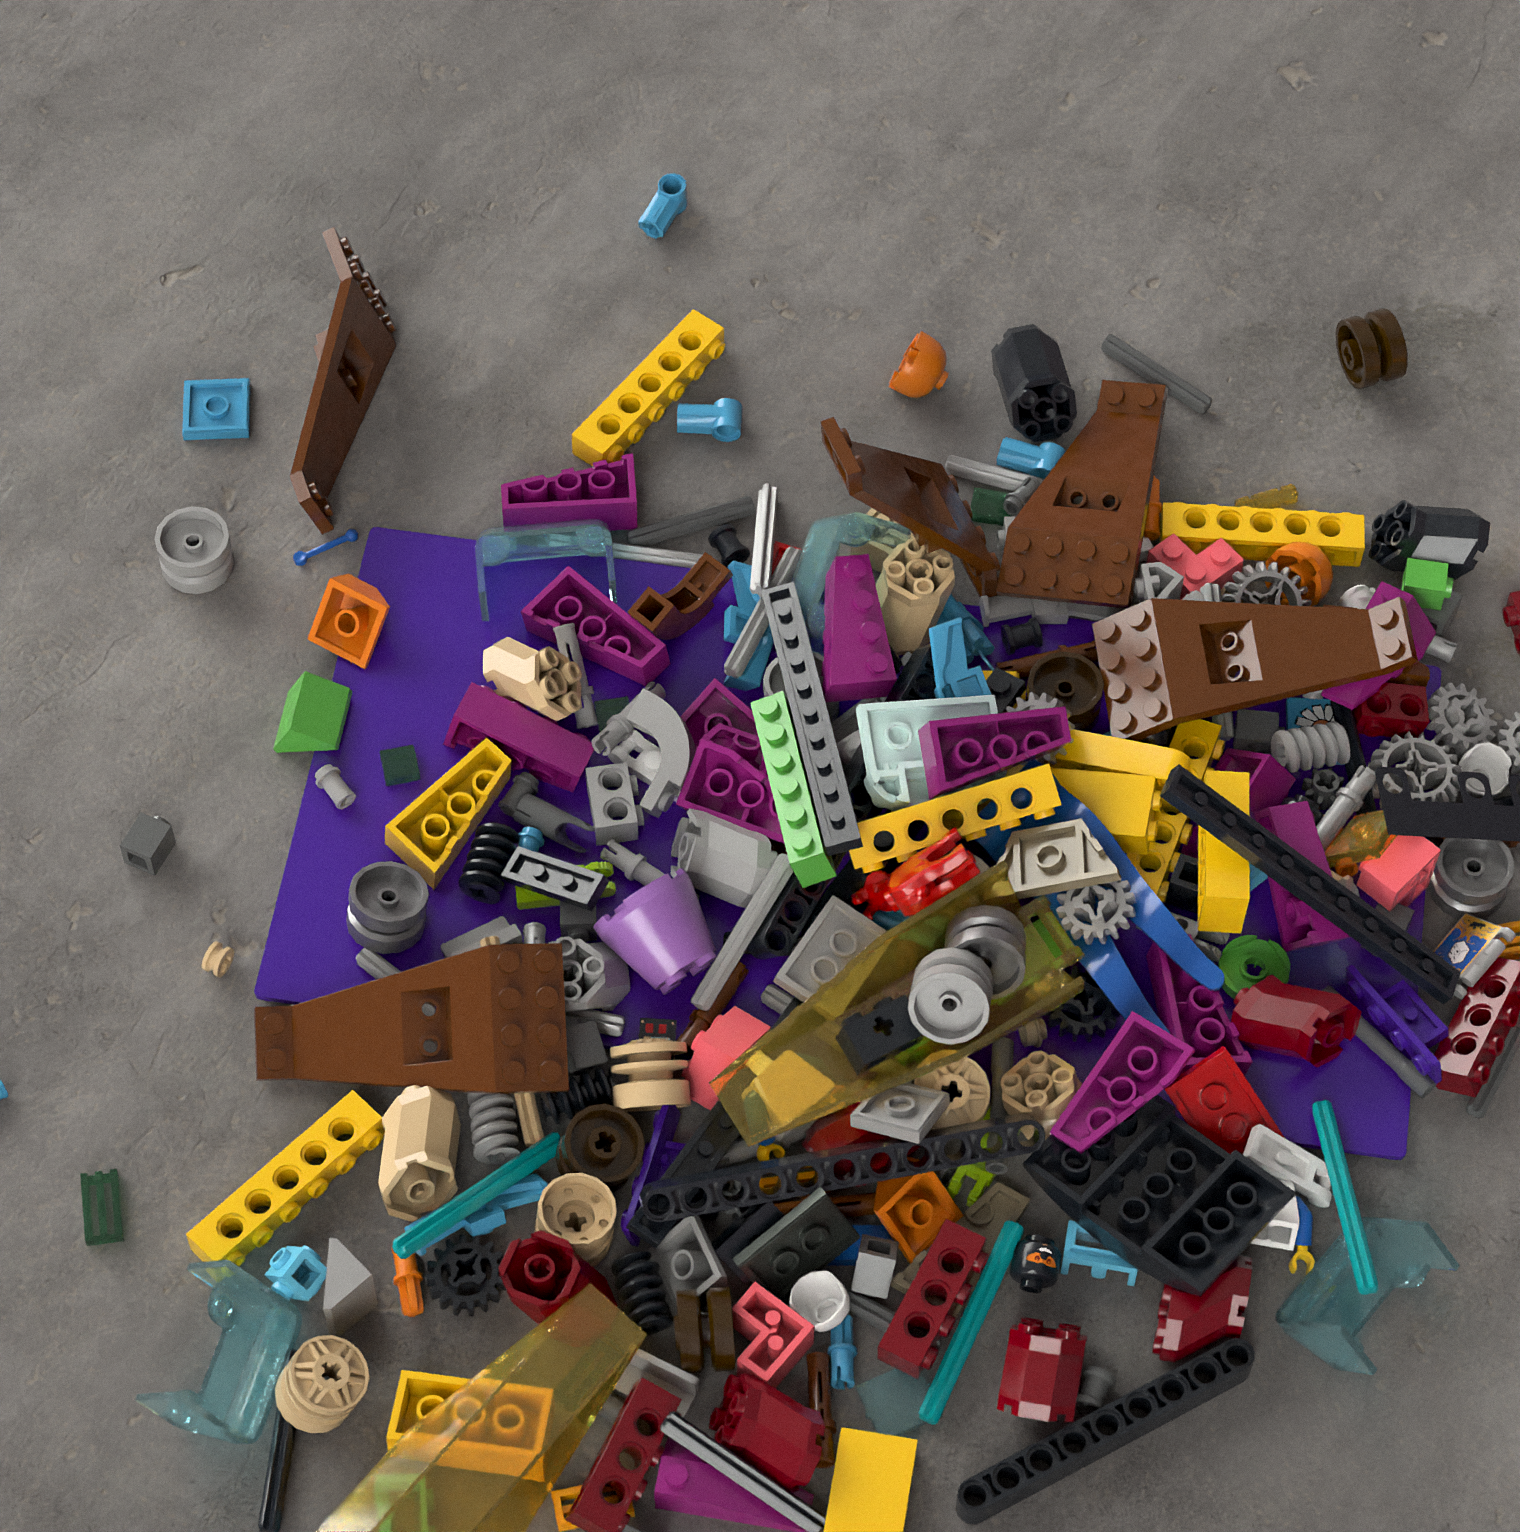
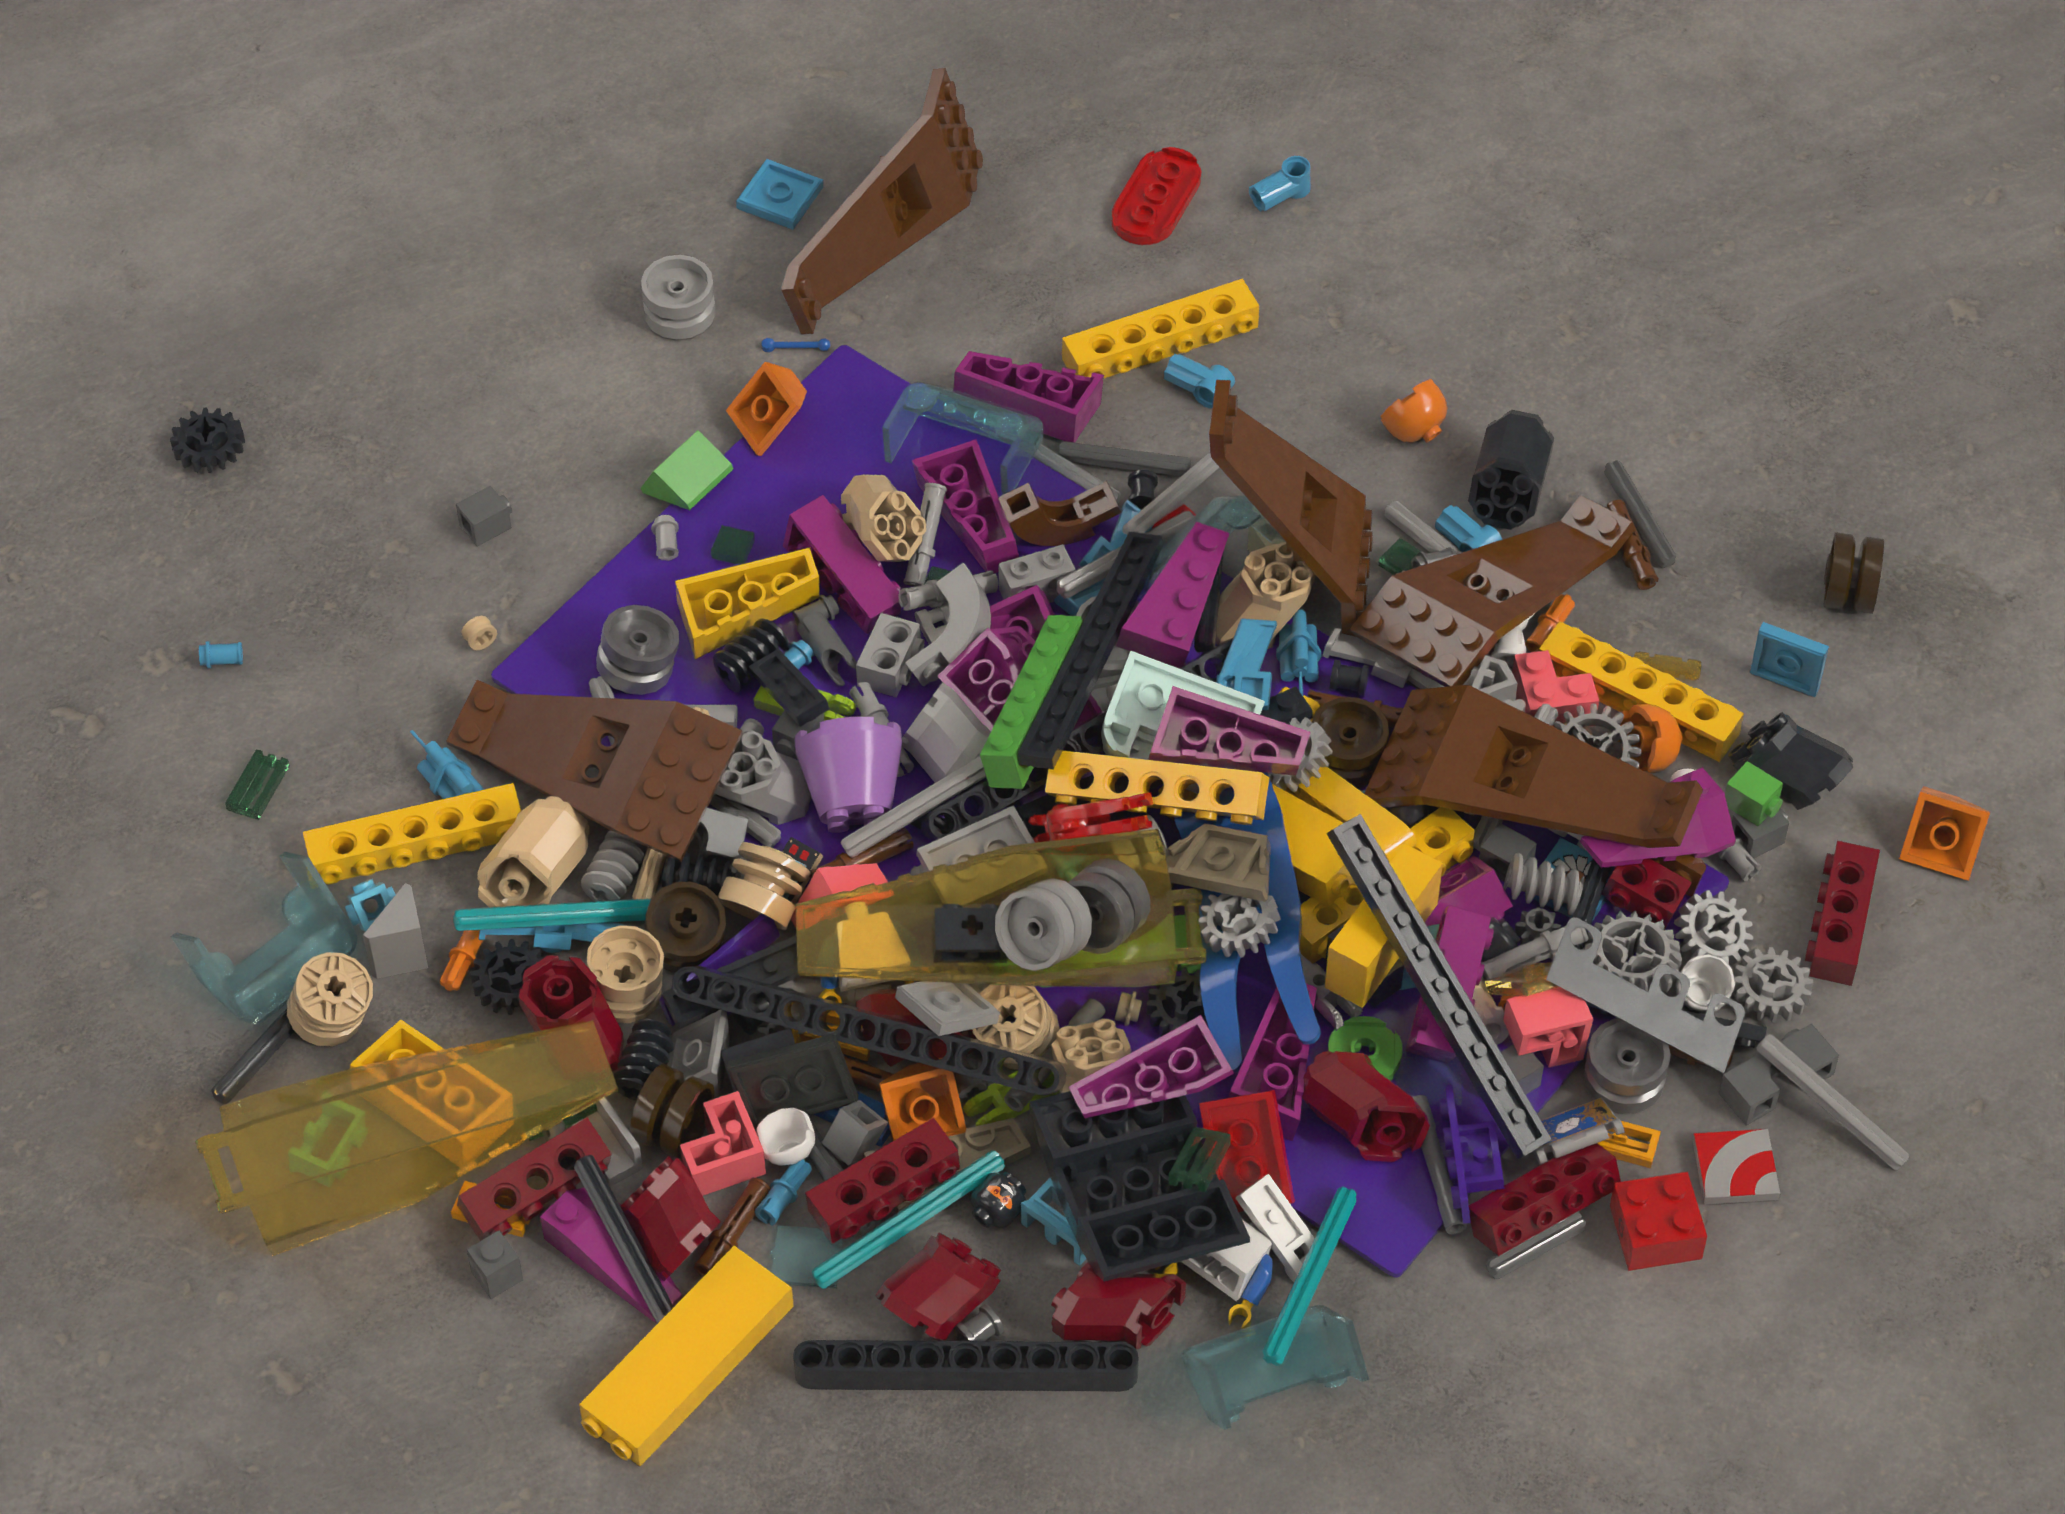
camera: 30 degrees right, 5 degrees down
(278, 1110) = (445, 772): none -> dark azure piece
(558, 264) = (1156, 196): none -> red tile
(695, 669) = (1039, 569): none -> light grey brick
(1177, 412) = (1635, 554): none -> reddish brown pin
(1208, 1163) = (1193, 1177): none -> clear green tile
(1369, 449) = (1789, 659): none -> dark azure tile

